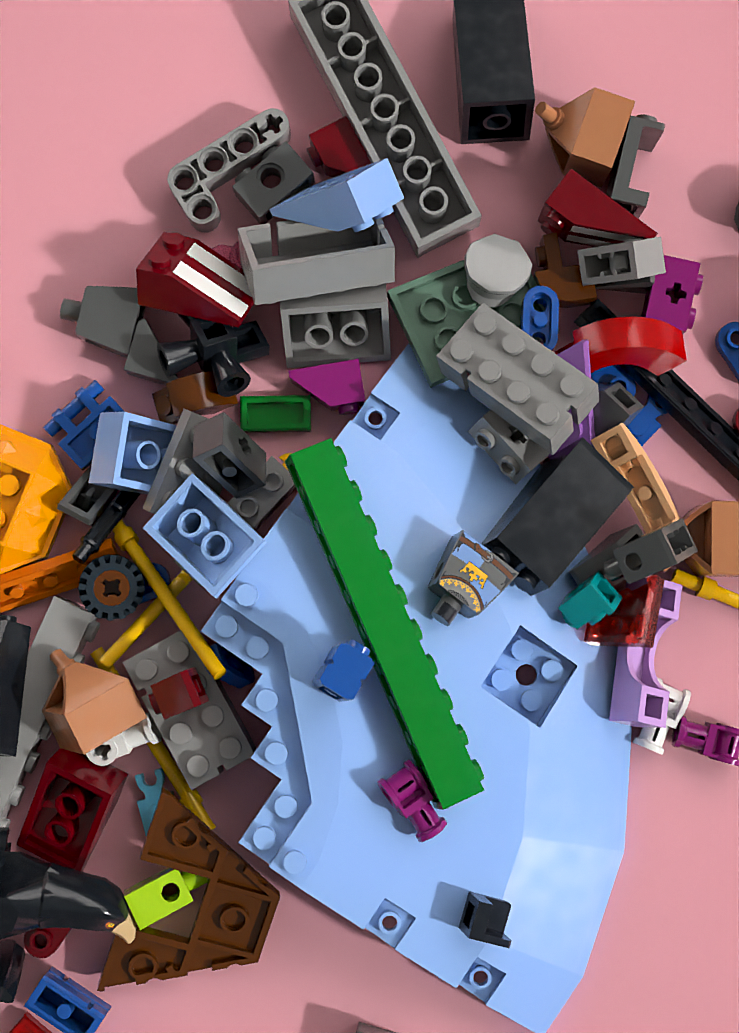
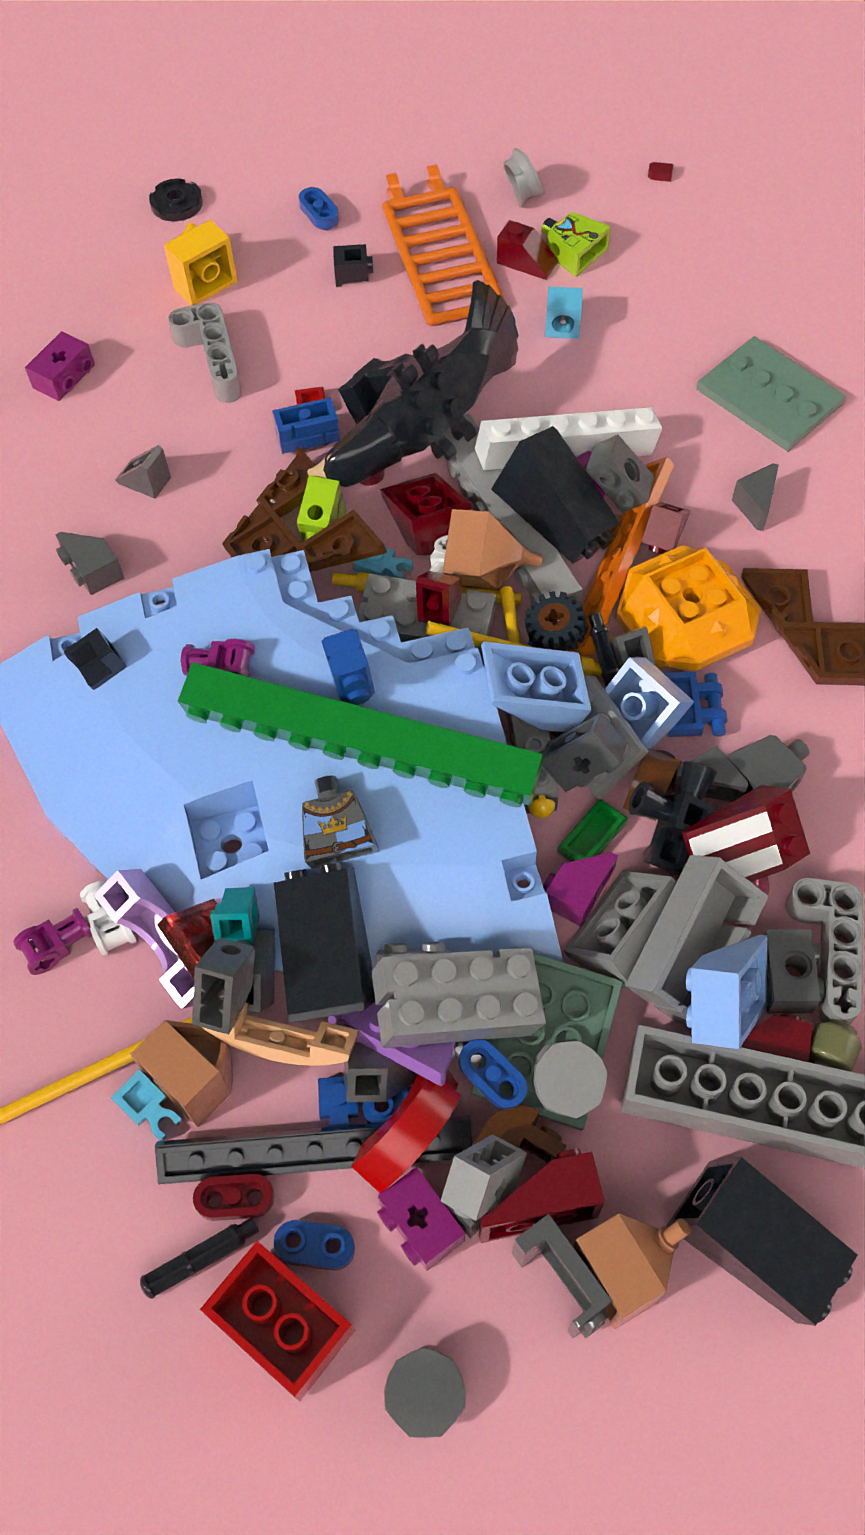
camera: 130 degrees right, 25 degrees down
(311, 111) = (834, 1045): none -> olive head

